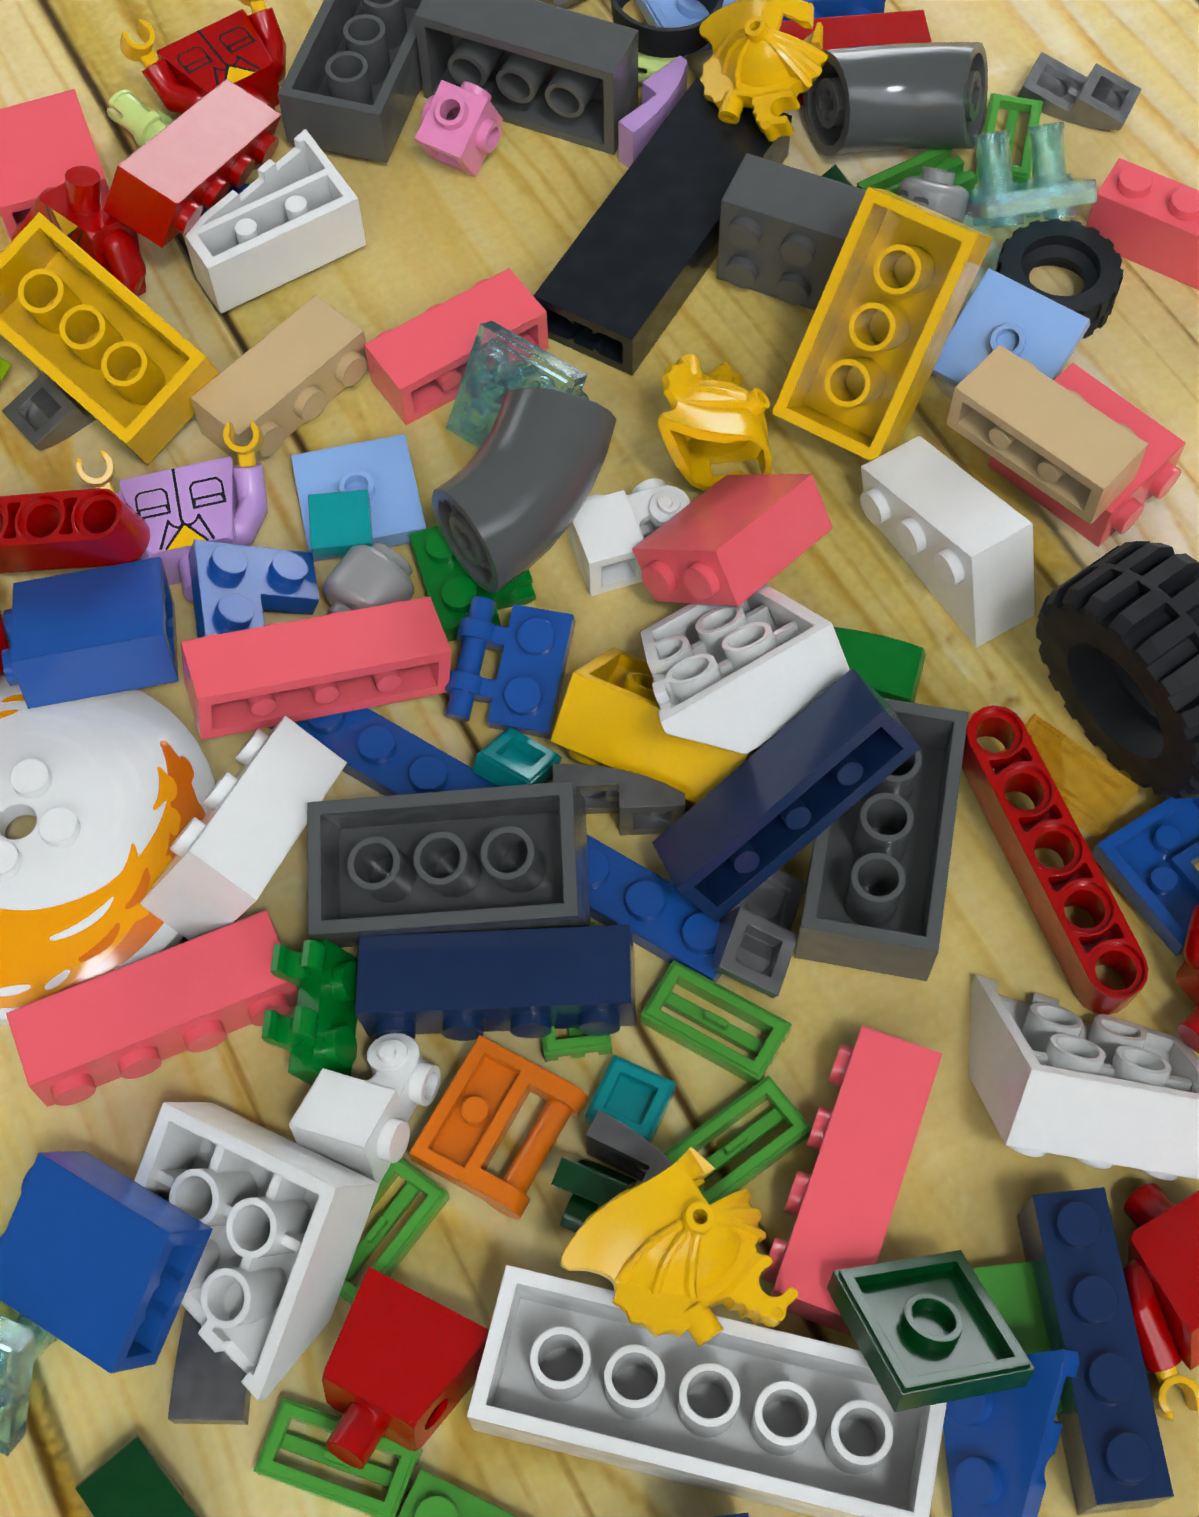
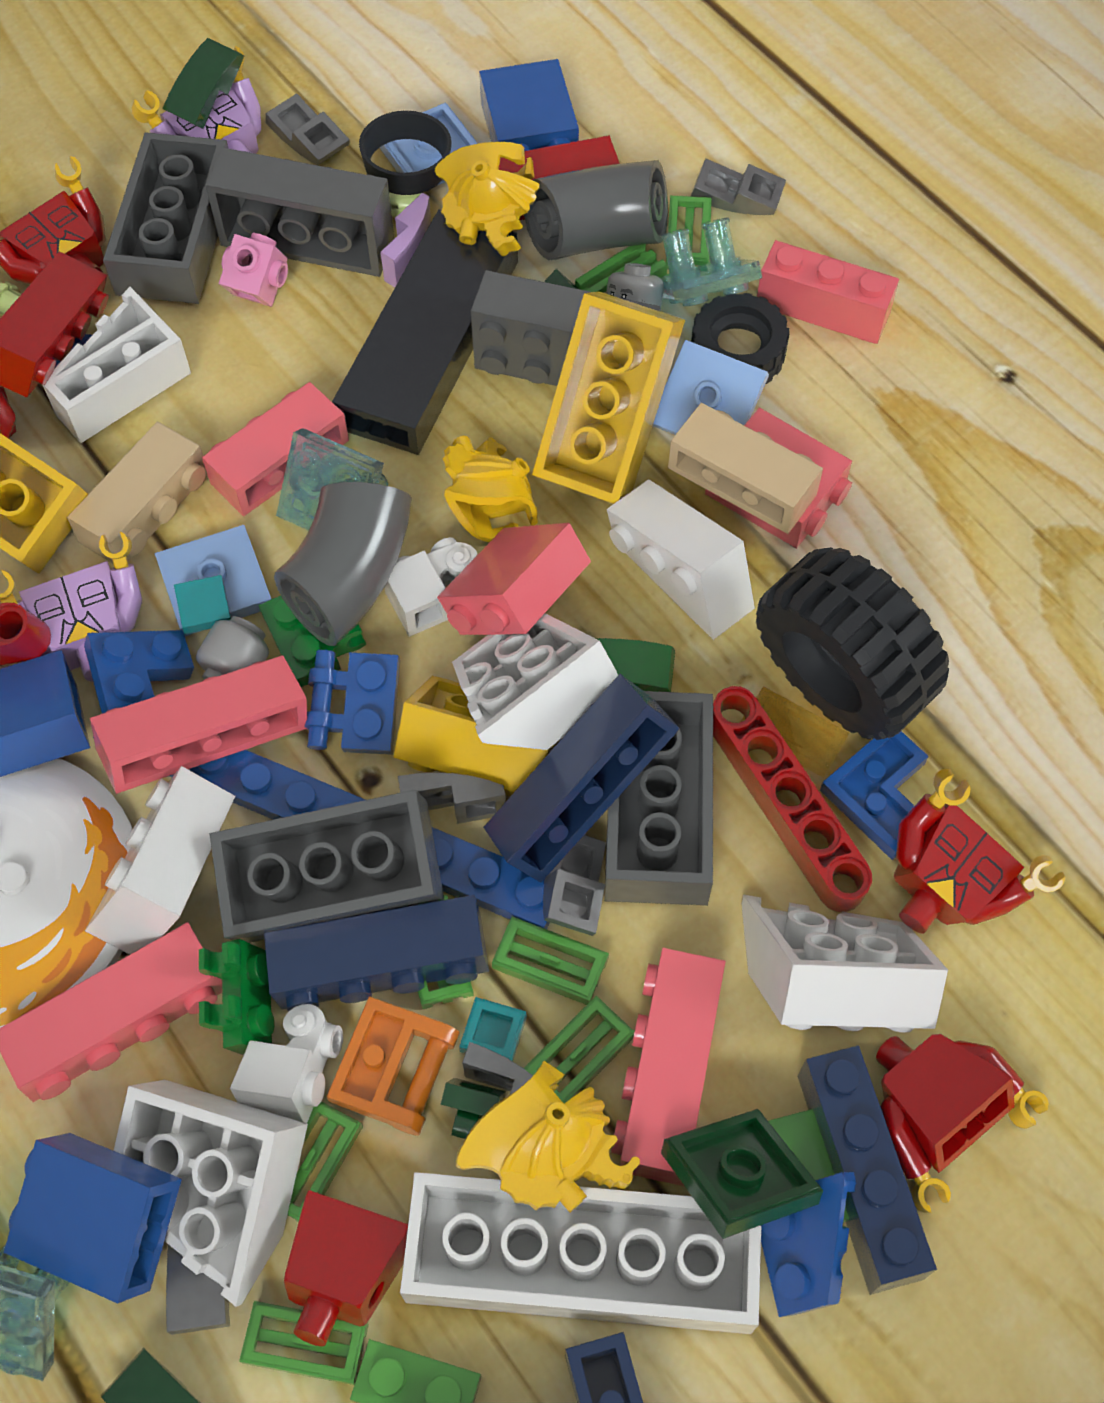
camera: 10 degrees left, 0 degrees up
(515, 760) = (368, 777): teal tile -> none

